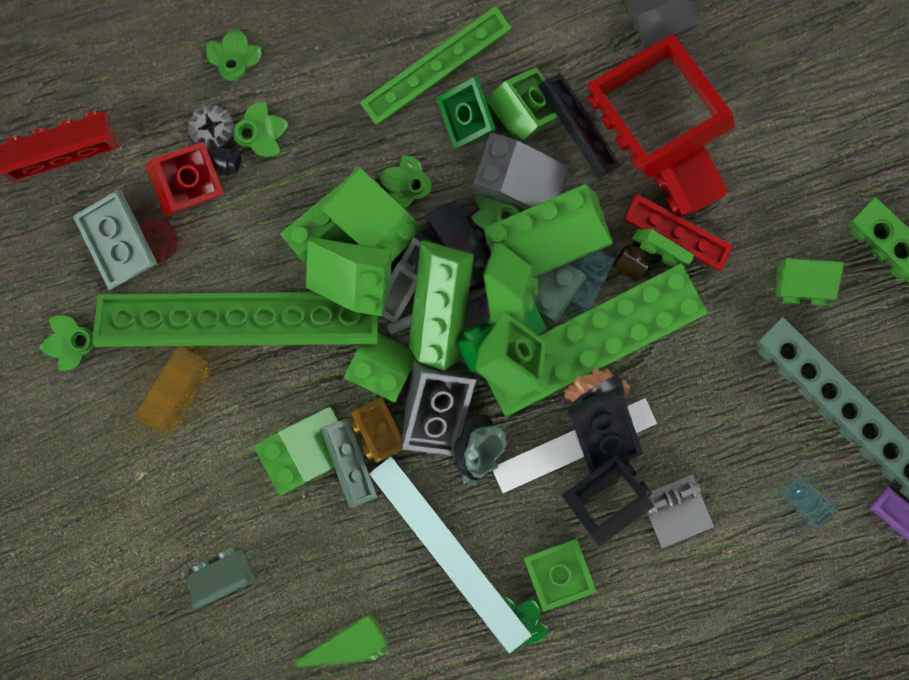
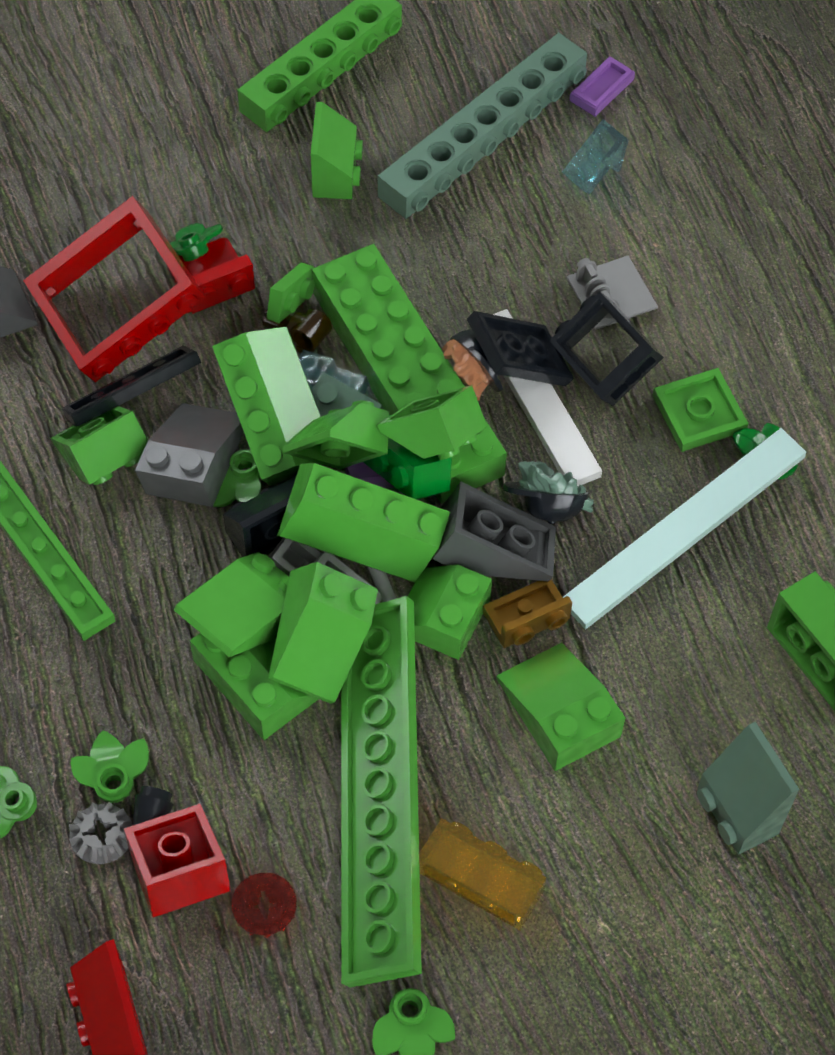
camera: 95 degrees left, 25 degrees down
(115, 240) = (261, 959): sand green tile -> none
(348, 463) = (572, 645): sand green tile -> none
(402, 179) = (181, 577): bright green plate -> none
(466, 114) = (106, 505): green slope -> none
(702, 244) = (251, 303): red plate -> none
(719, 165) = (193, 240): none -> green plate

